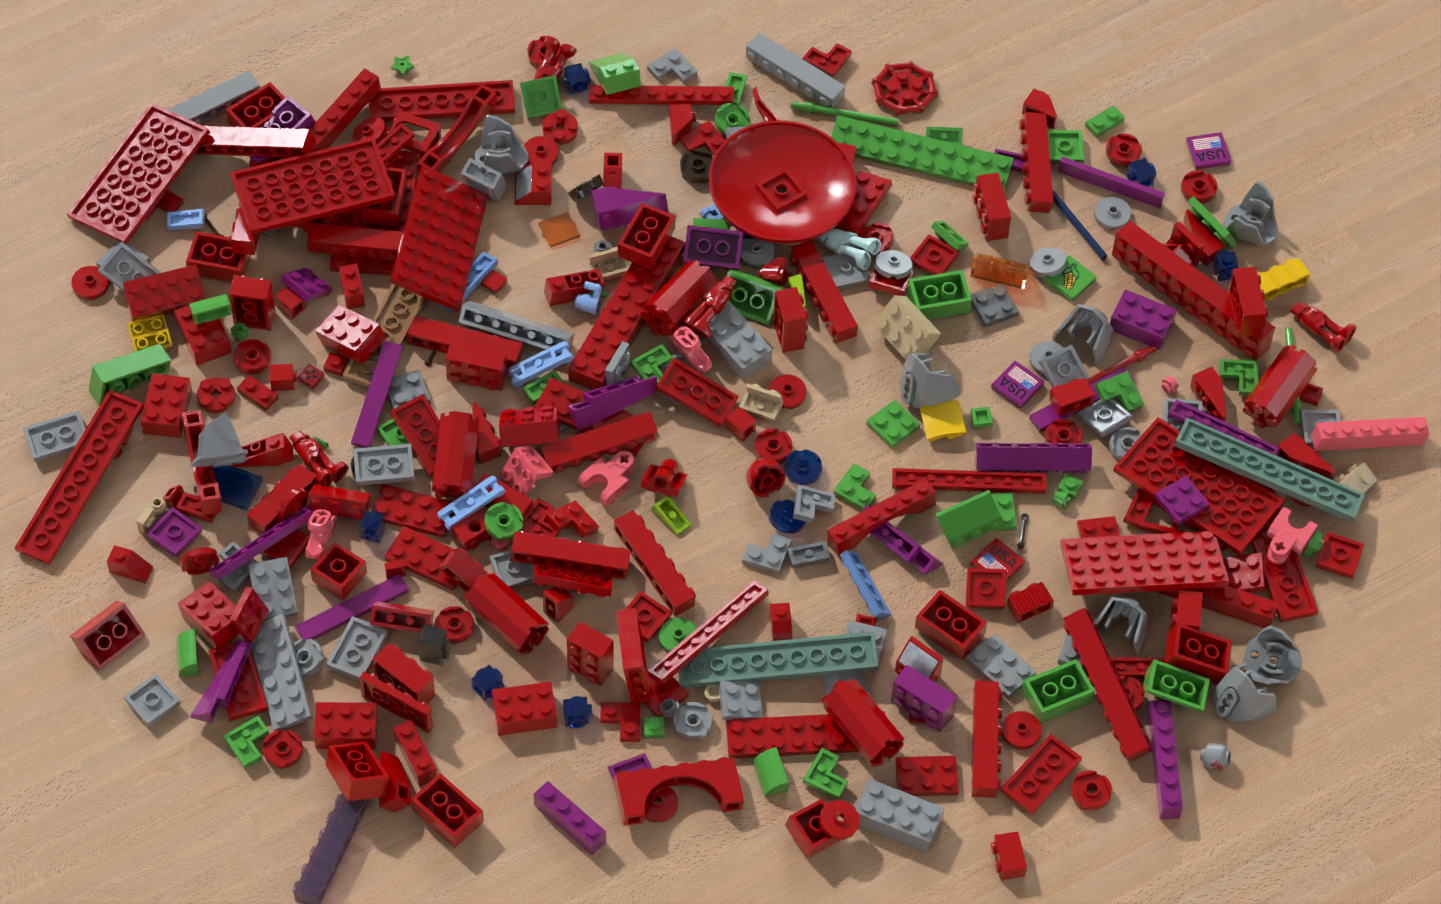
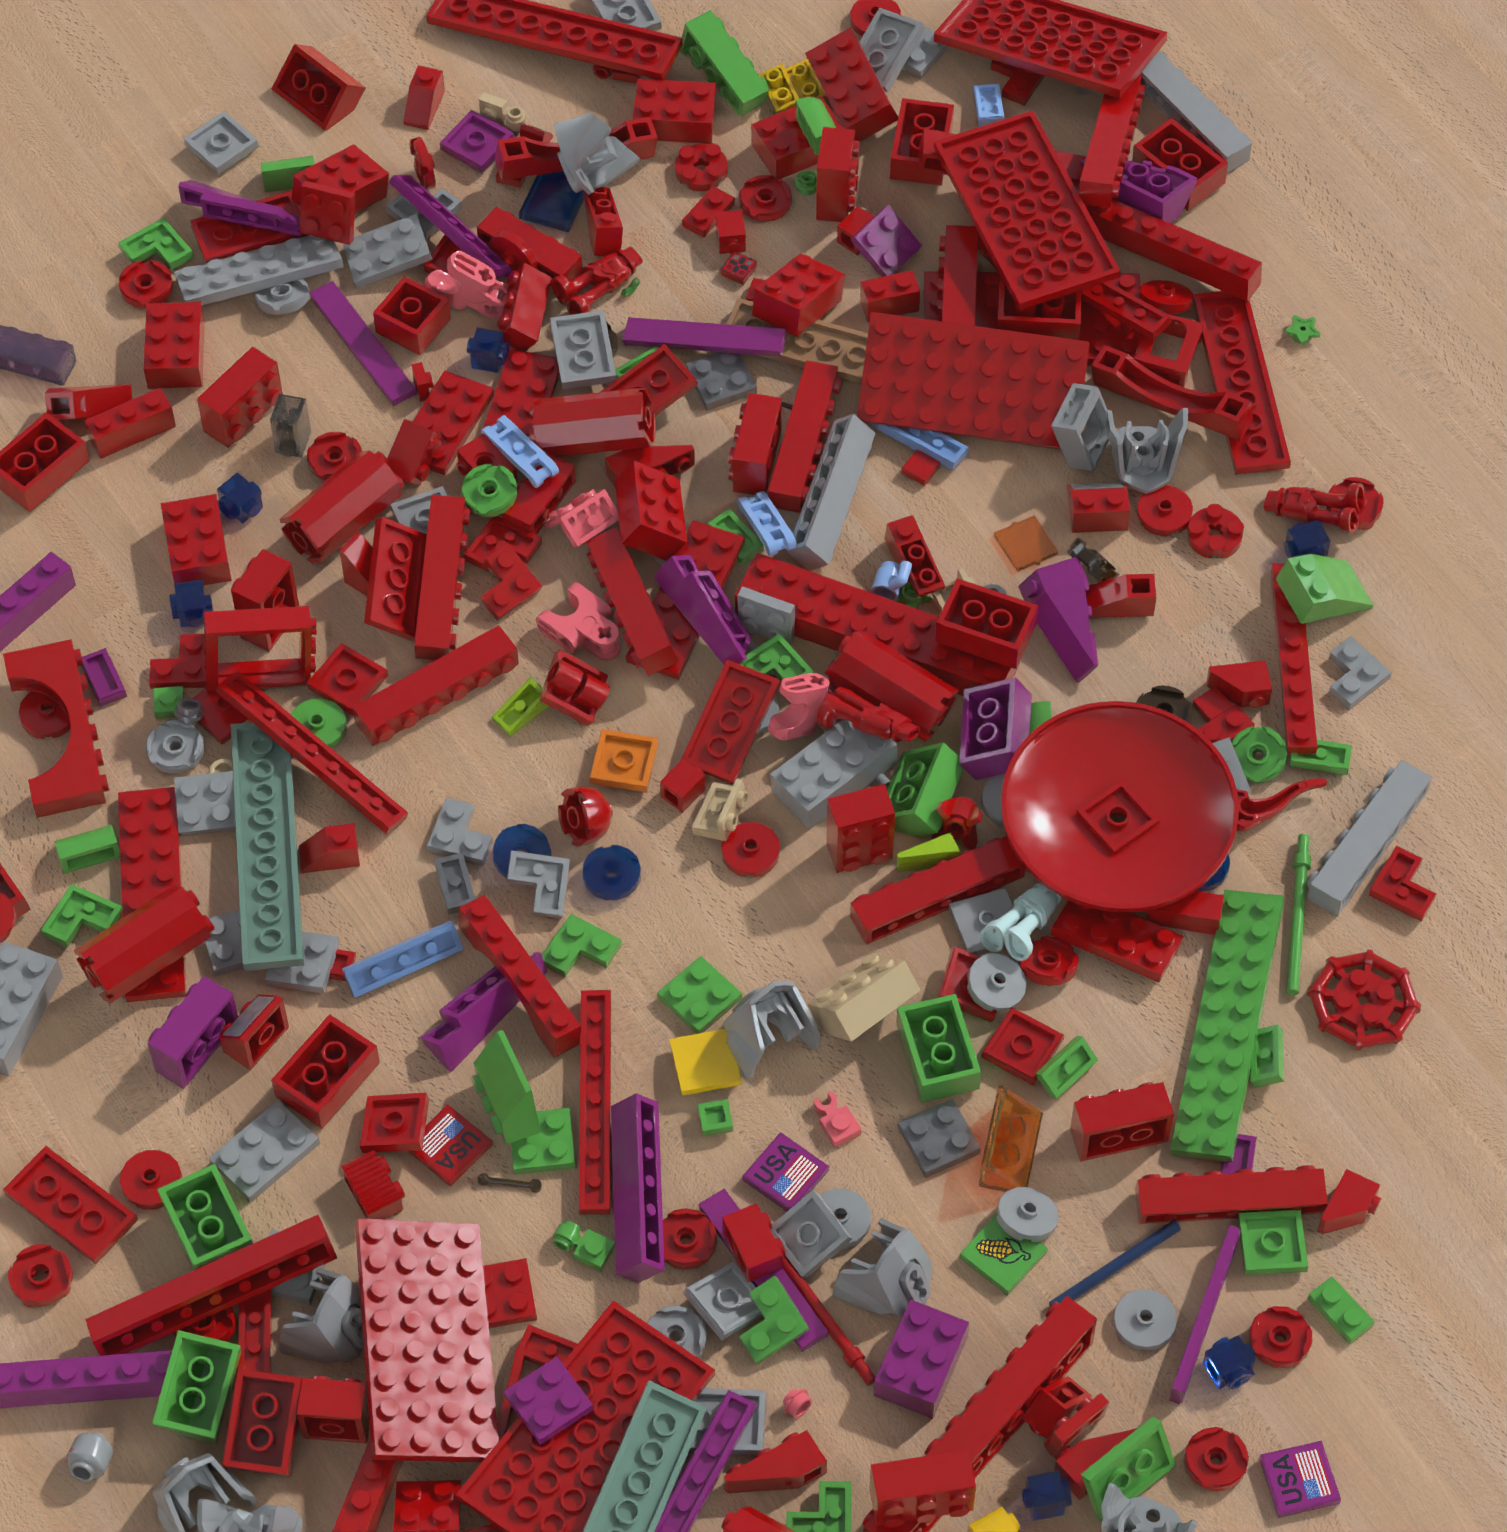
camera: 90 degrees right, 0 degrees up
(357, 648) = (300, 350): light grey plate -> none
(357, 771) = (90, 350): red brick -> none
(396, 702) = (183, 412): red plate -> none
(400, 616) = (338, 390): red brick -> none
(541, 96) = (1260, 496): bright green plate -> none
(718, 457) = (624, 760): none -> orange plate
(773, 438) = (647, 819): red plate -> none
(927, 775) = (77, 1051): red plate -> none
(982, 355) = (837, 1123): none -> coral plate
(985, 739) = (132, 1125): red brick -> none

